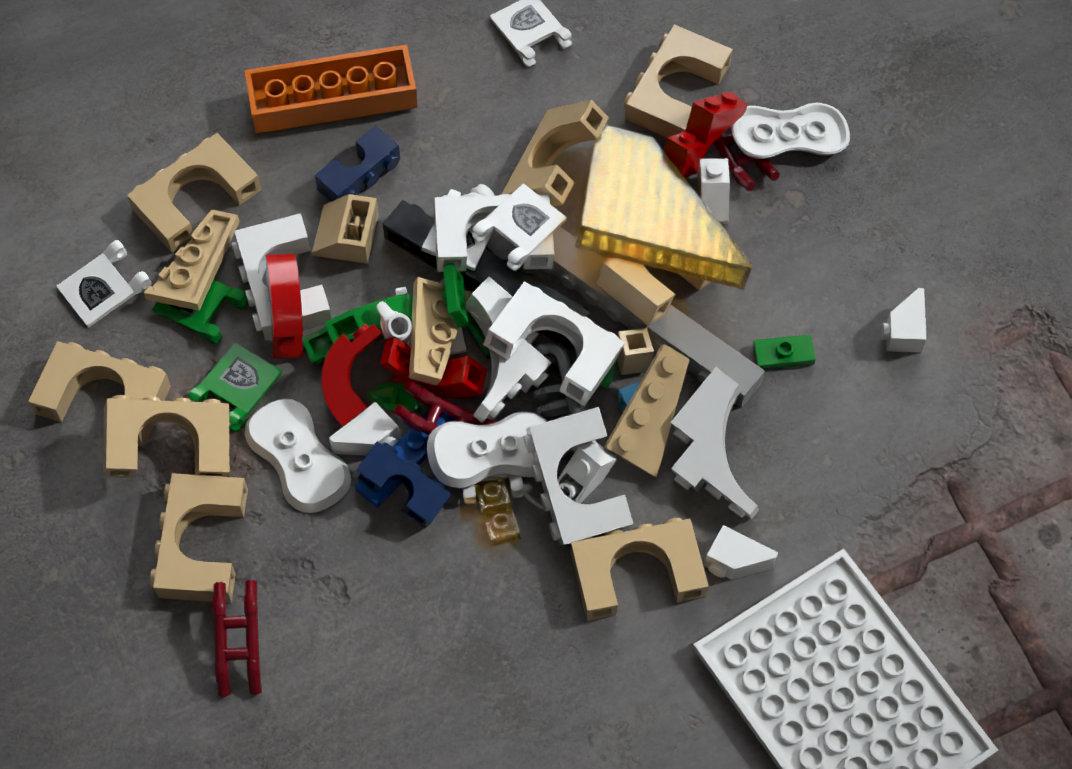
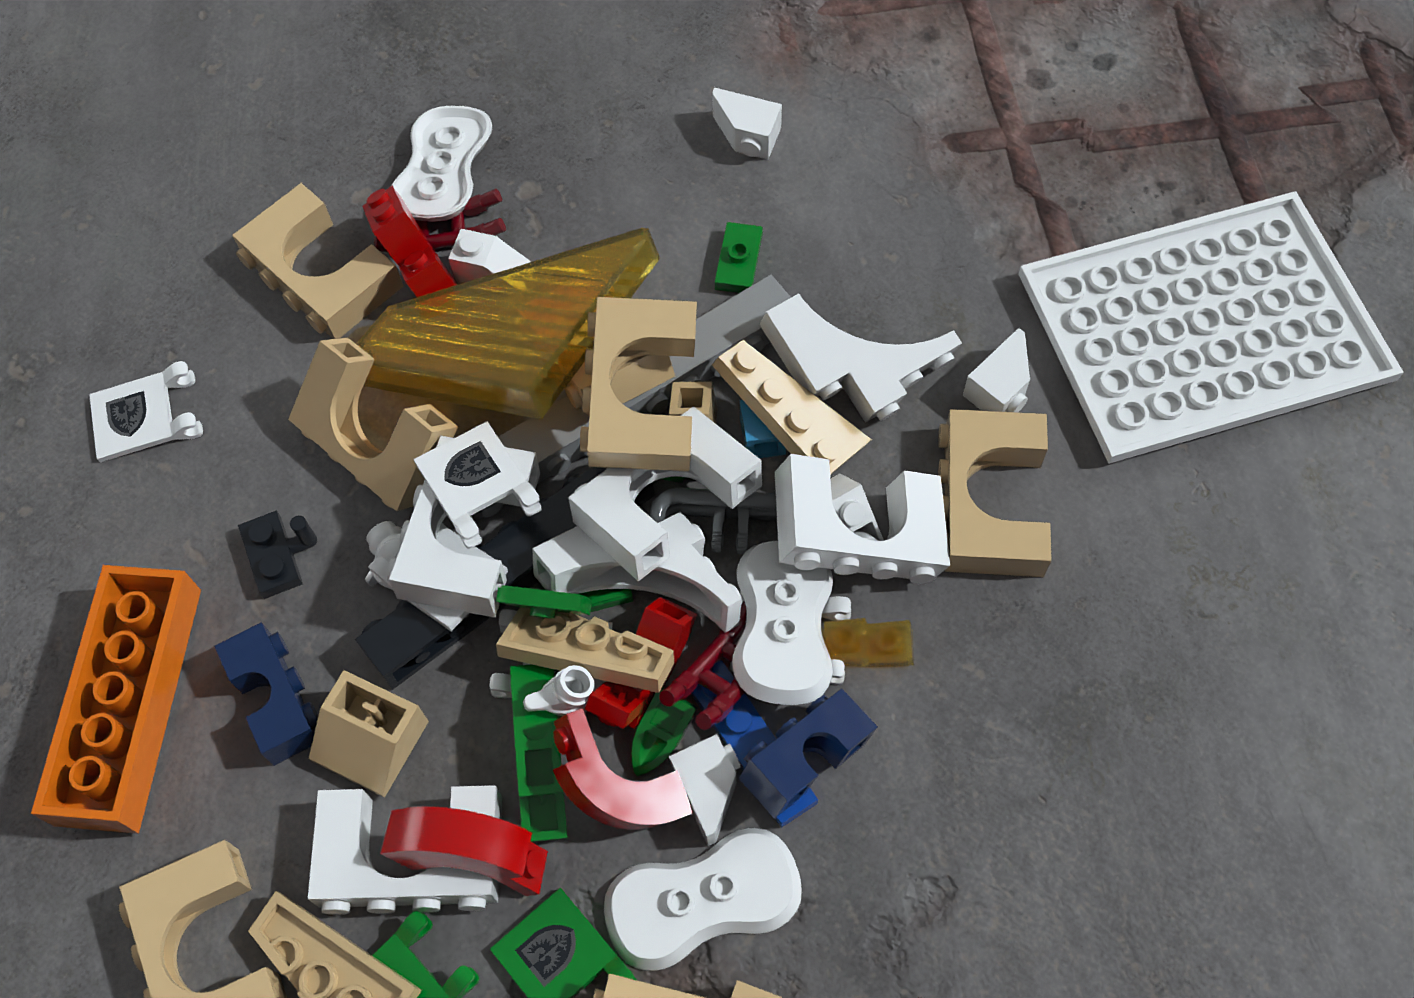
camera: 70 degrees left, 0 degrees up
(455, 136) = (272, 551): none -> black plate
(646, 269) = (615, 433): none -> tan arch

